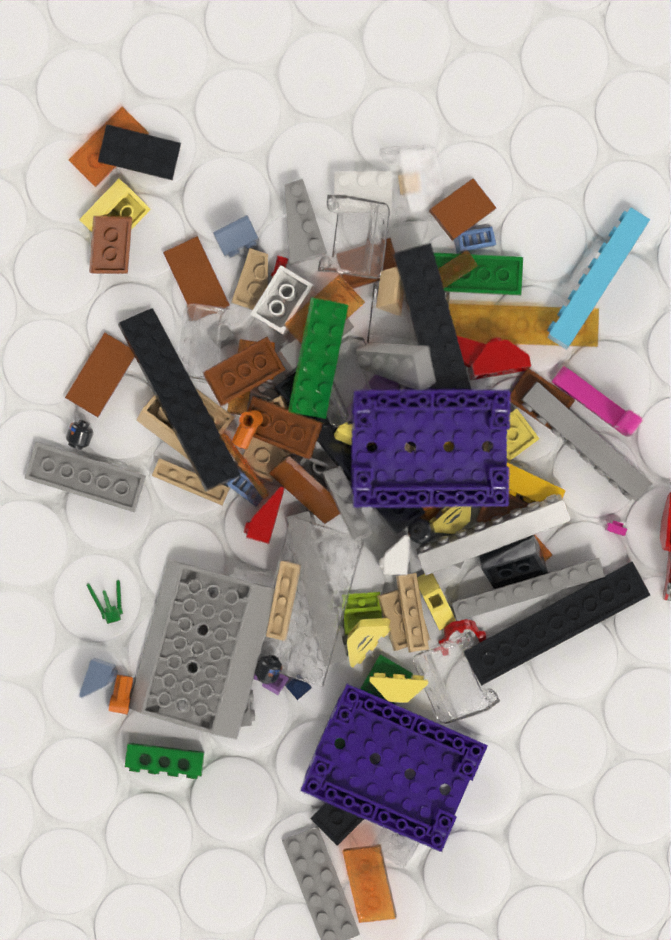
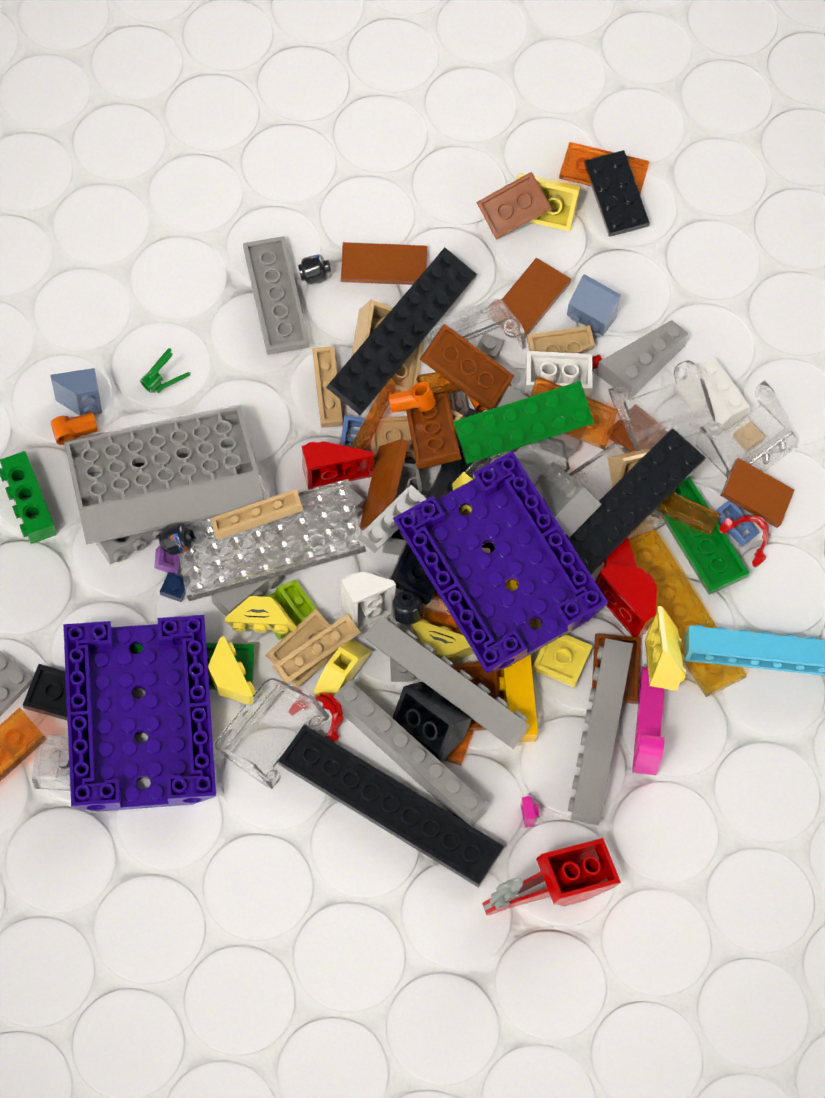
camera: 60 degrees right, 25 degrees down
(491, 223) = (728, 524): none -> red helmet
(557, 363) = (664, 652): none -> light yellow slope

